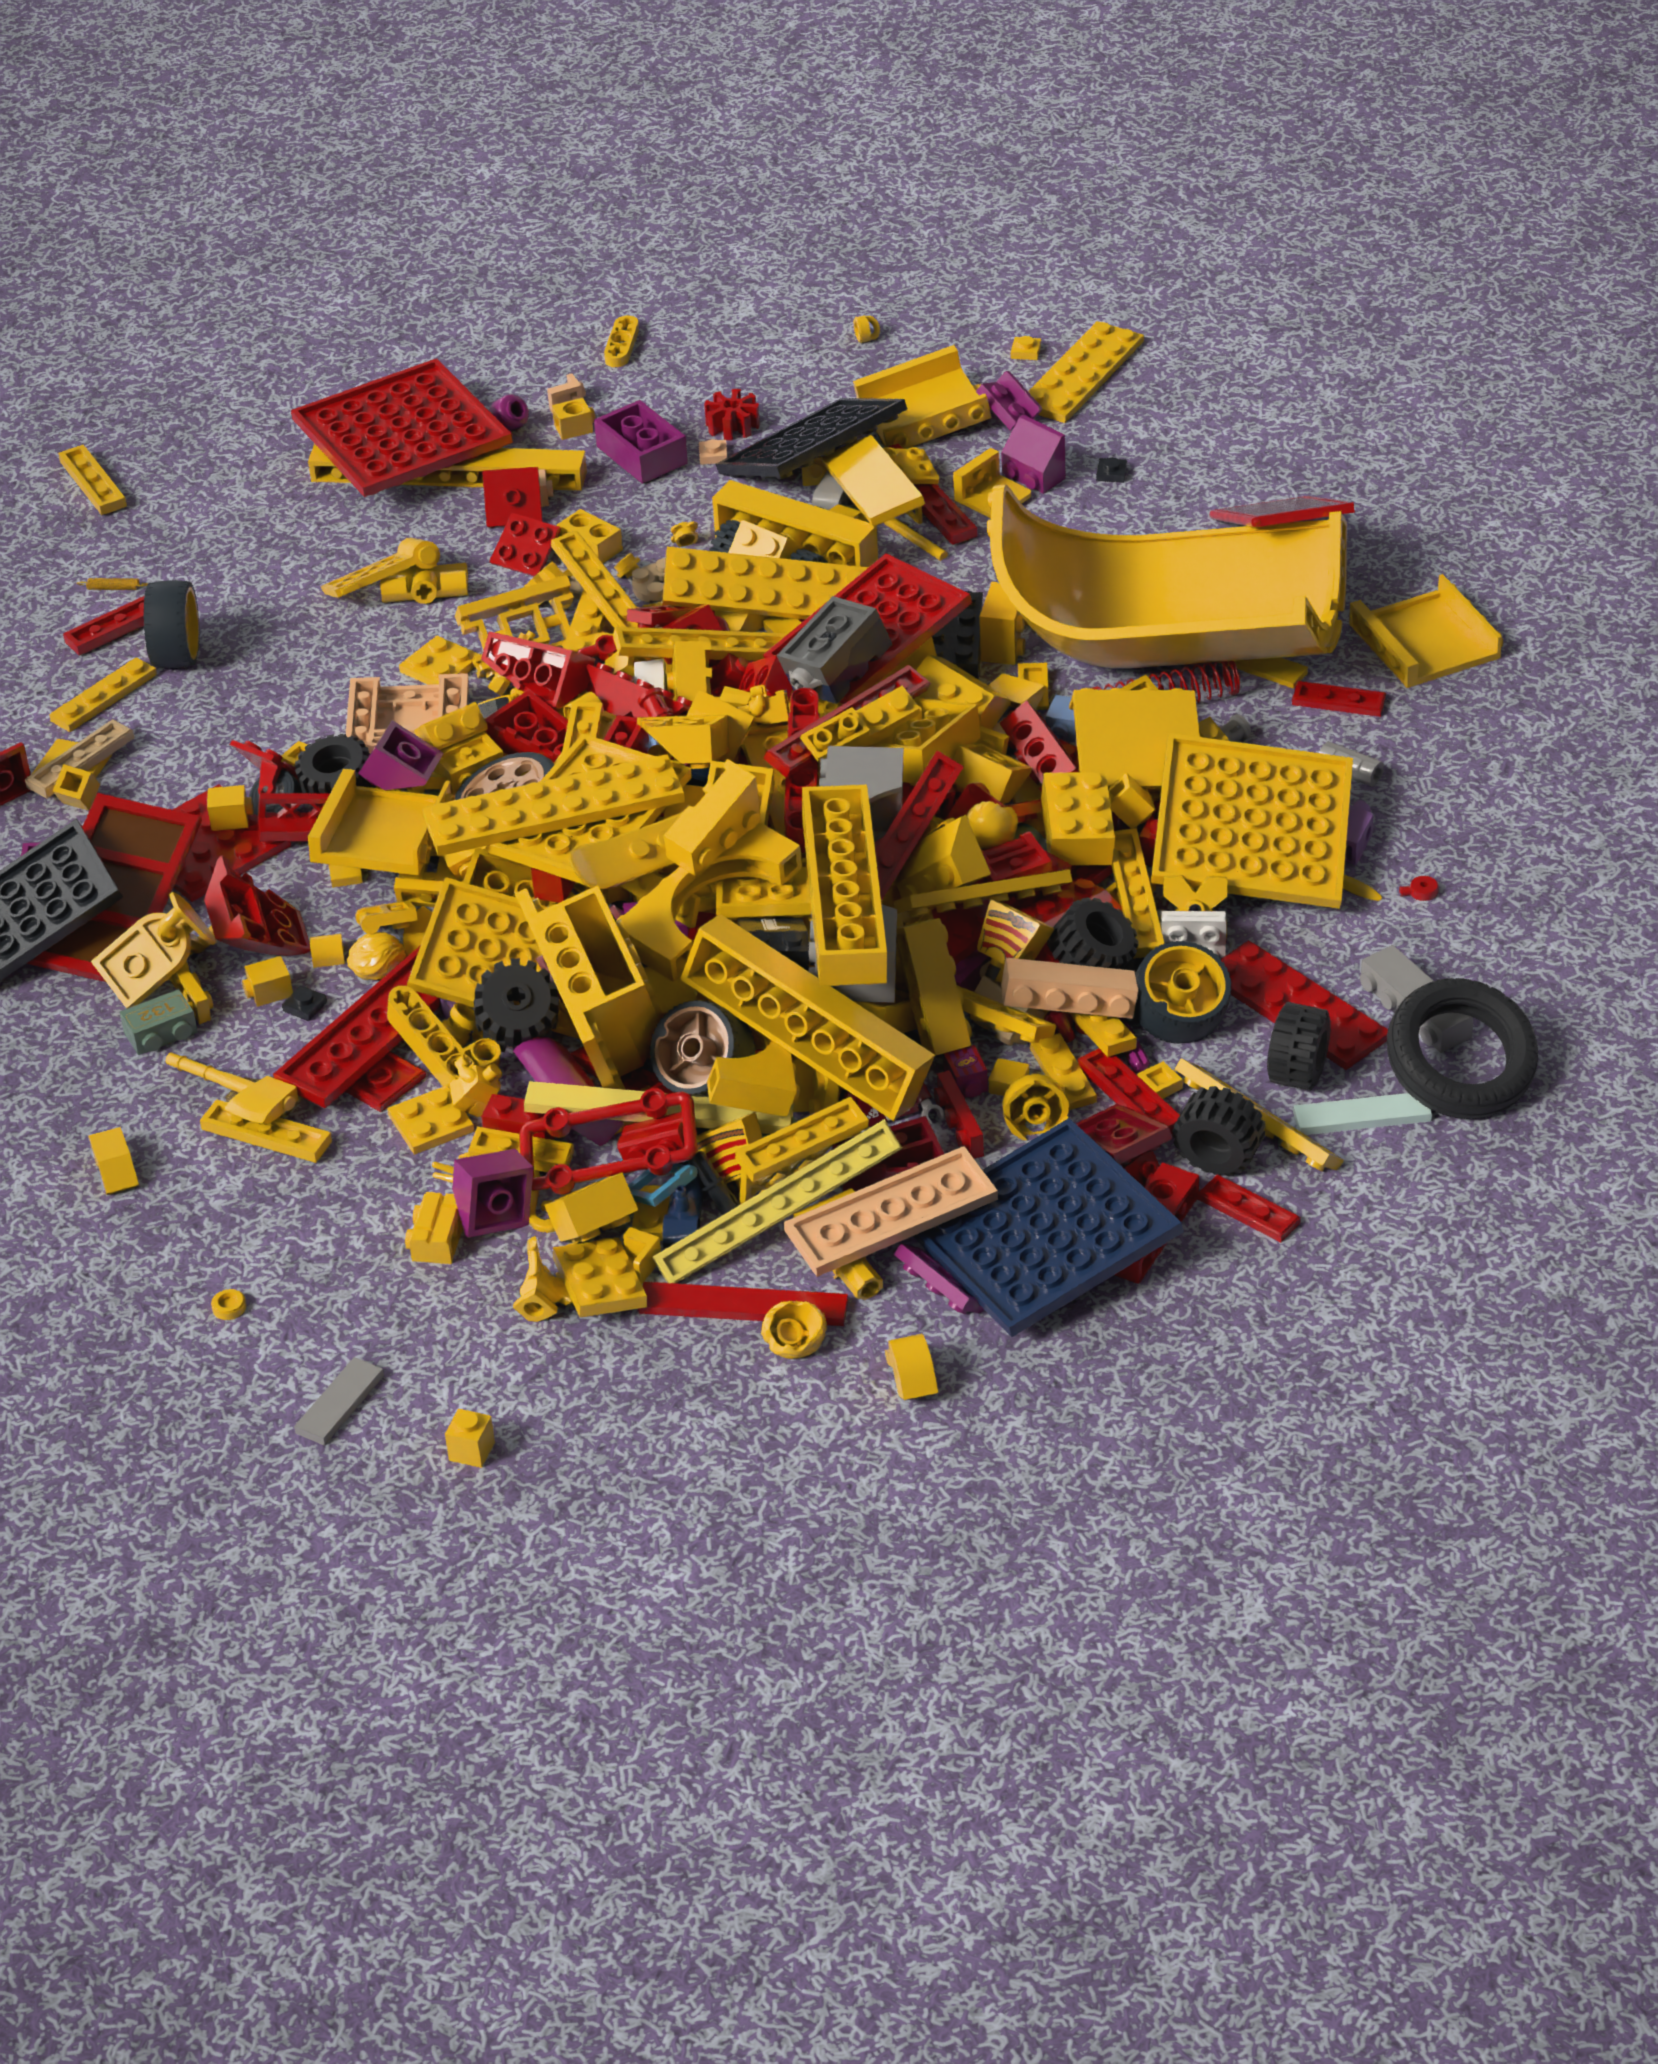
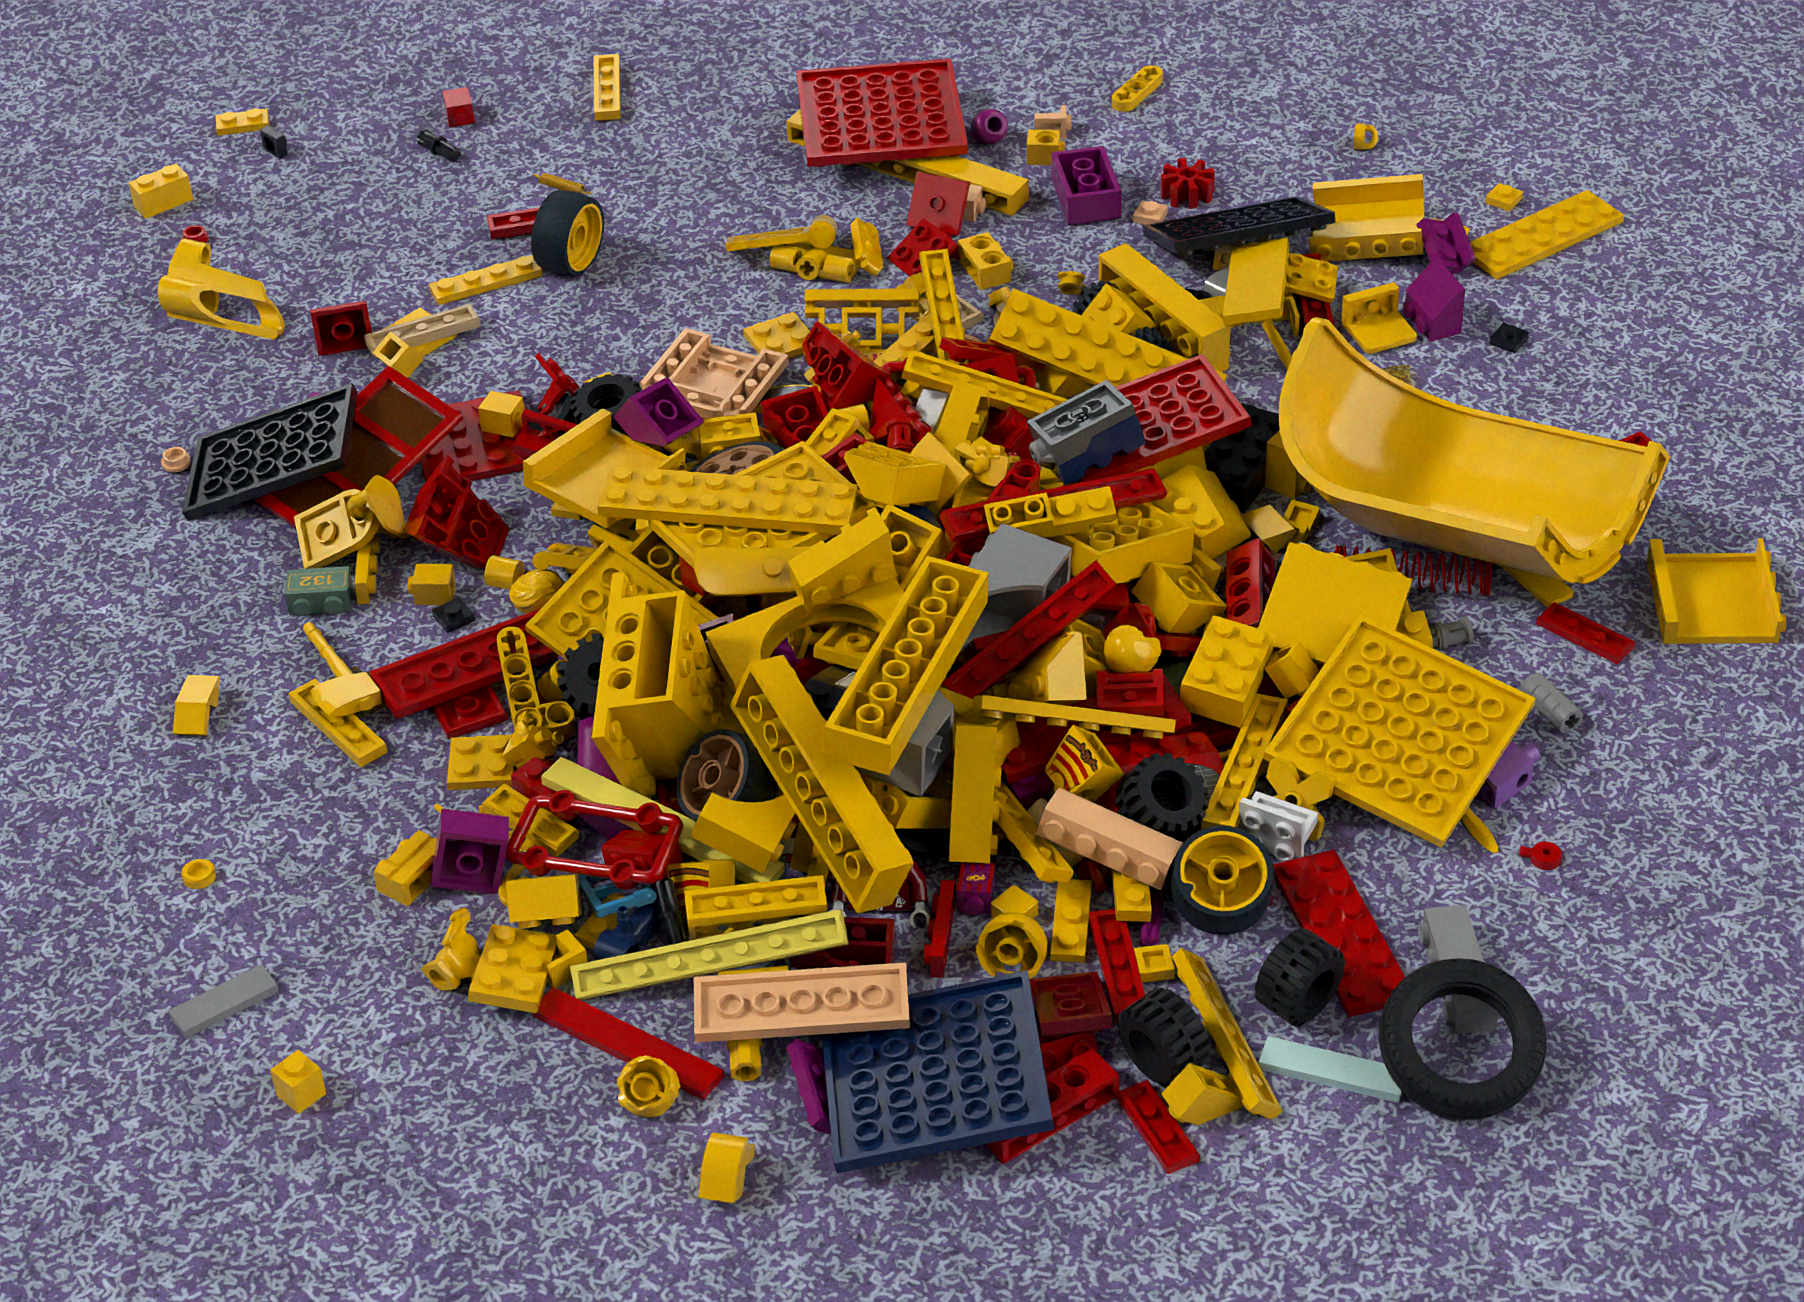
camera: 25 degrees right, 0 degrees up
(453, 727) = (727, 400): yellow brick -> none
(466, 555) = (867, 246): none -> yellow hinge
(1272, 1170) = (1201, 1095): none -> yellow slope
(1281, 511) = (1626, 426): red door -> none

